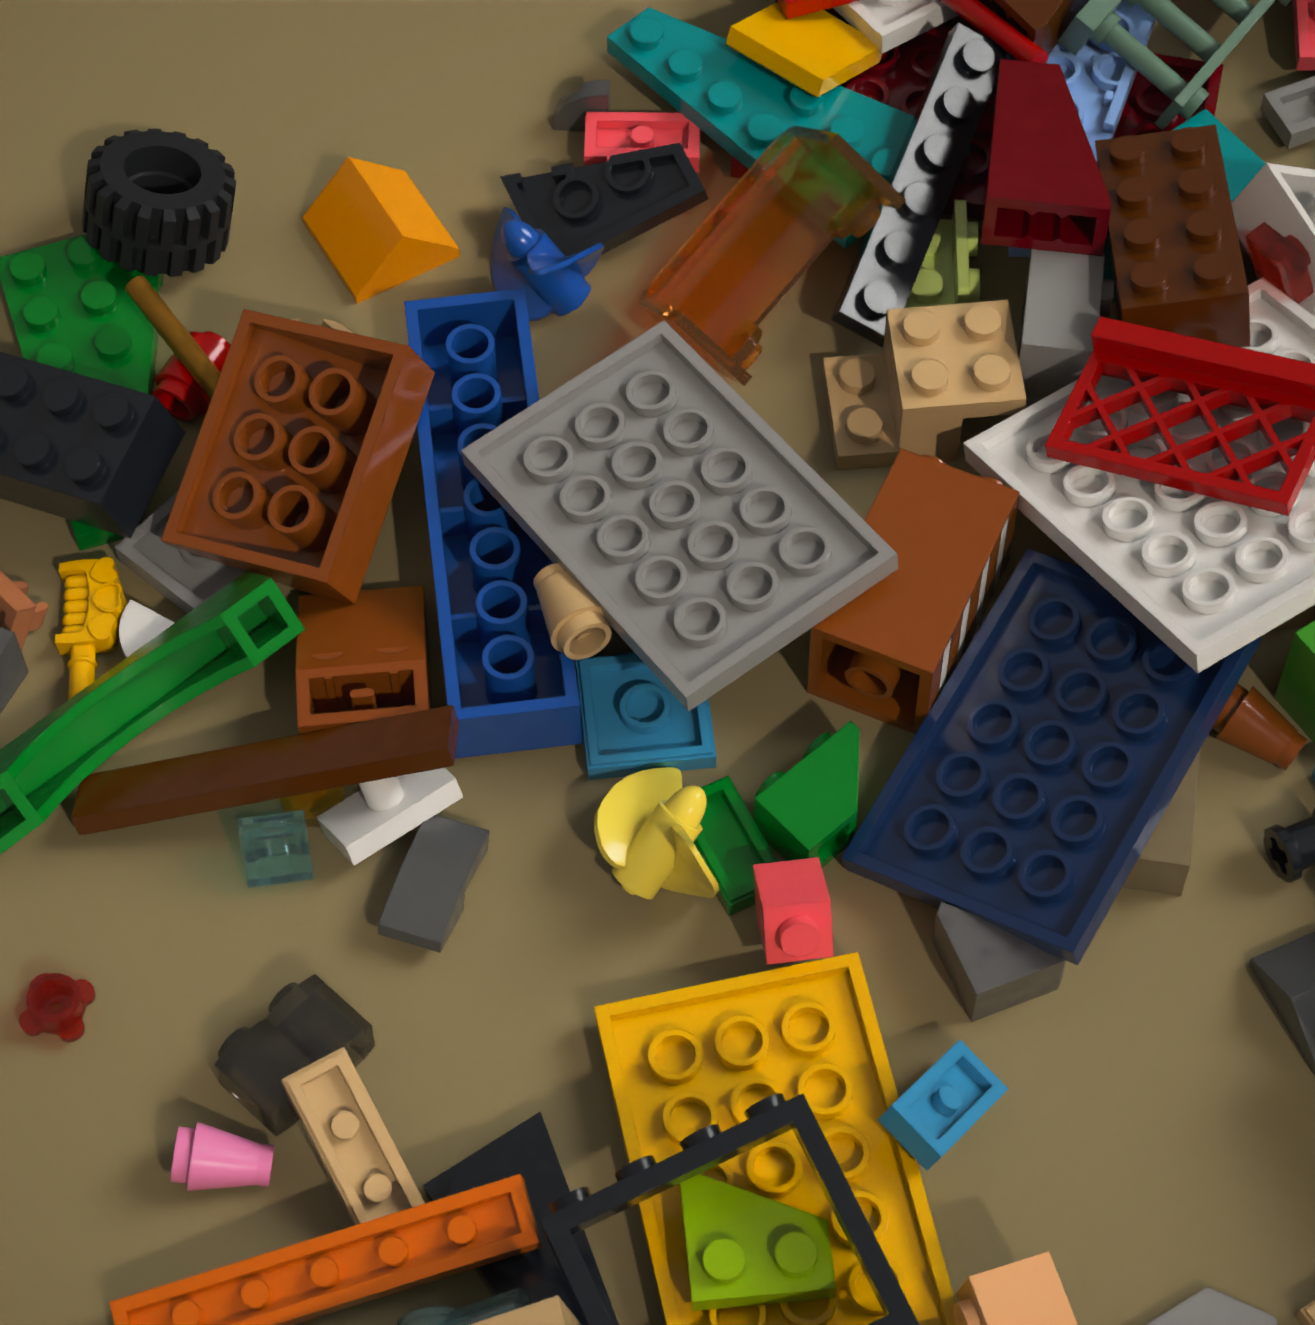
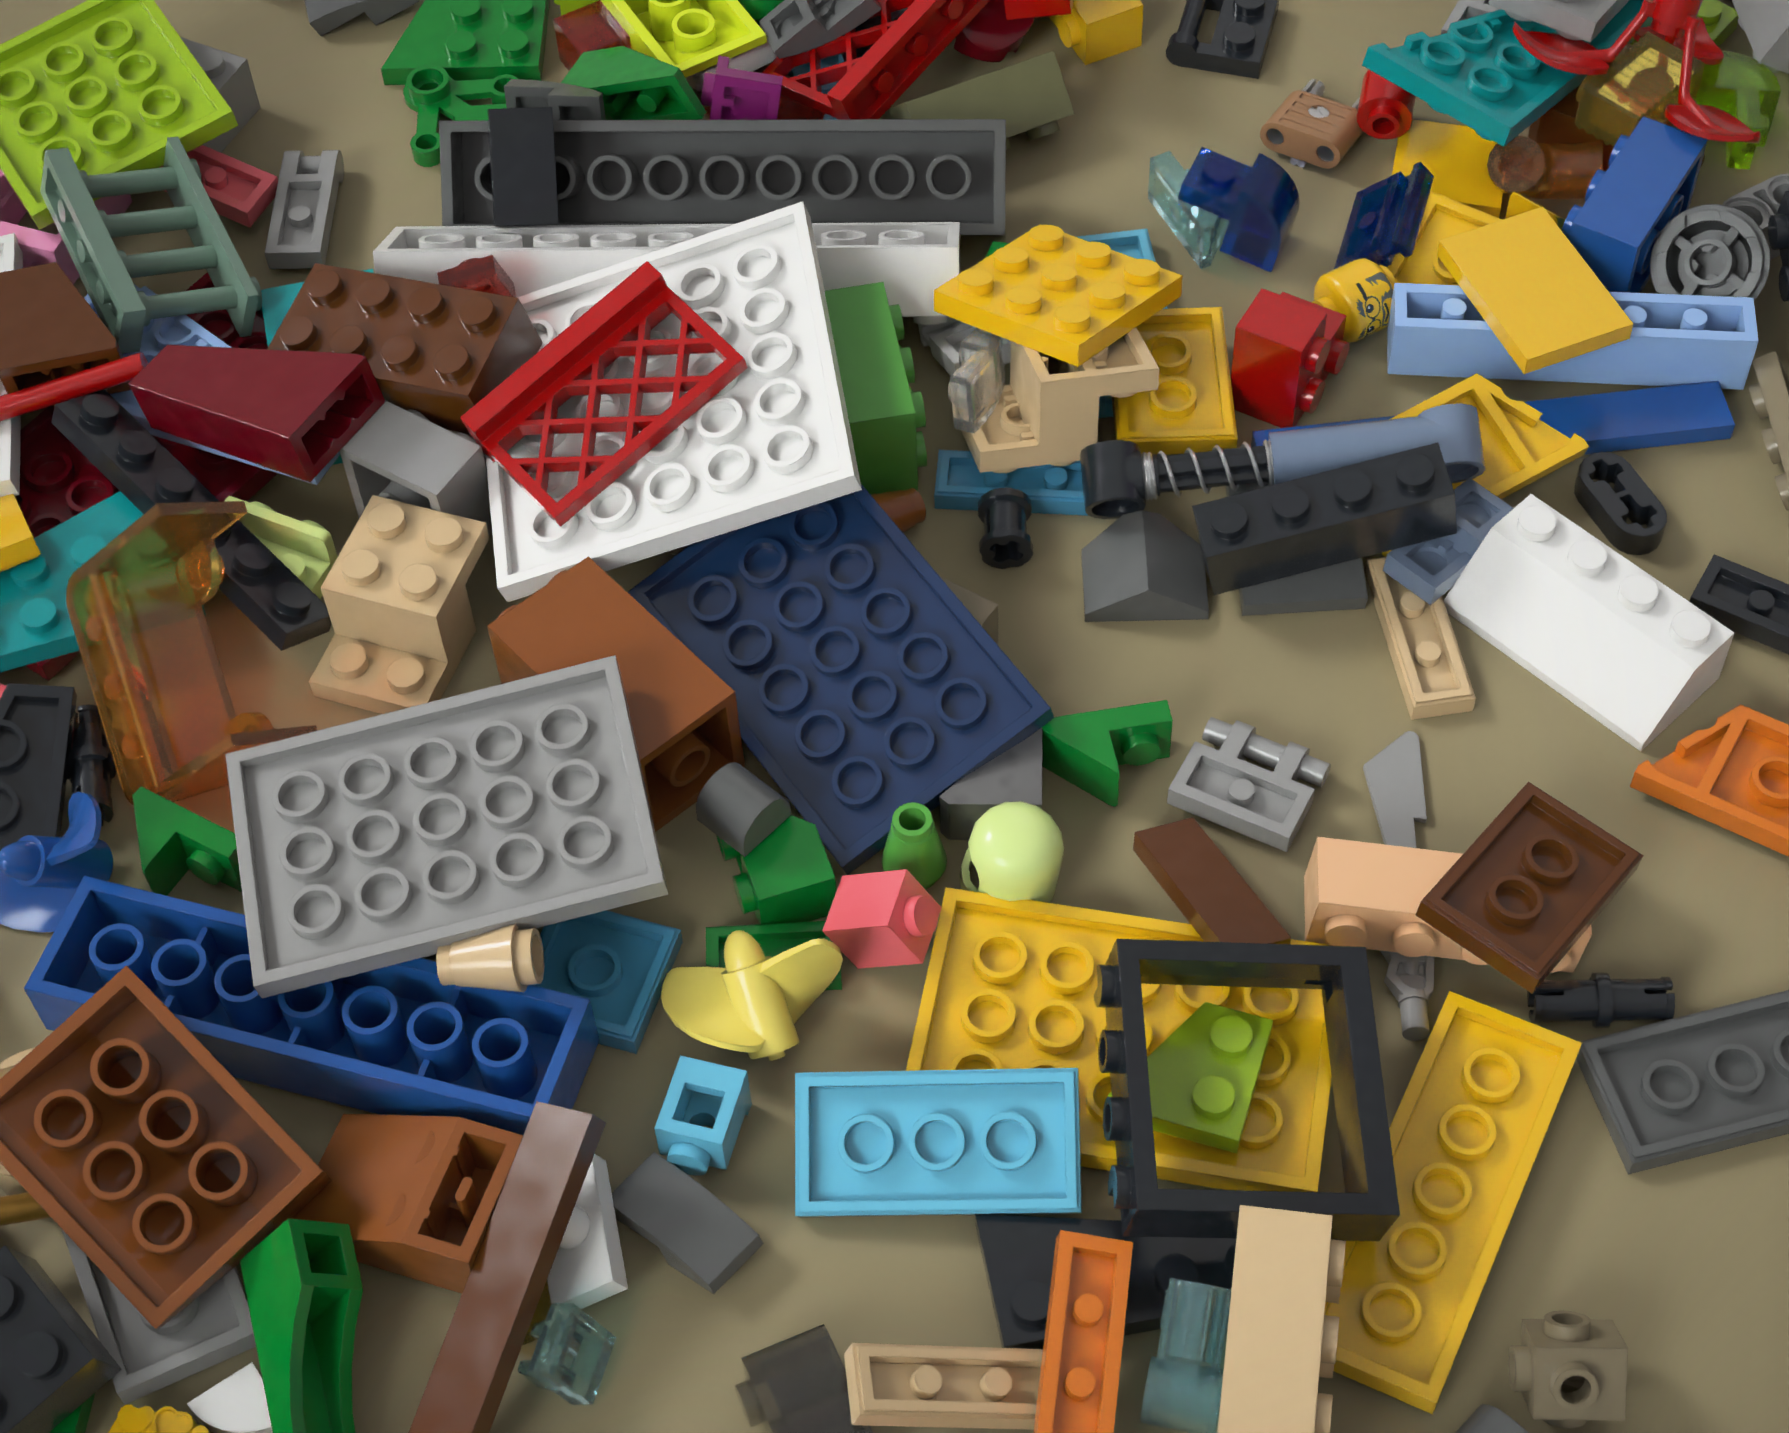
camera: 65 degrees left, 5 degrees down
(533, 850) = (700, 1097): none -> medium azure brick
(587, 1049) = (937, 1142): none -> medium azure tile
(602, 329) = (180, 840): none -> green slope
(651, 249) = (90, 760): none -> black pin
(835, 739) = (740, 807): none -> dark grey brick
(886, 910) = (915, 845): none -> bright green cone
(917, 998) = (1014, 853): none -> yellowish green helmet
(942, 1105) = (1129, 877): dark azure plate -> none
(962, 1187) = (1206, 885): none -> reddish brown tile
(1090, 1021) = (1093, 743): none -> green slope
(1102, 1181) = (1243, 795): none -> light grey plate

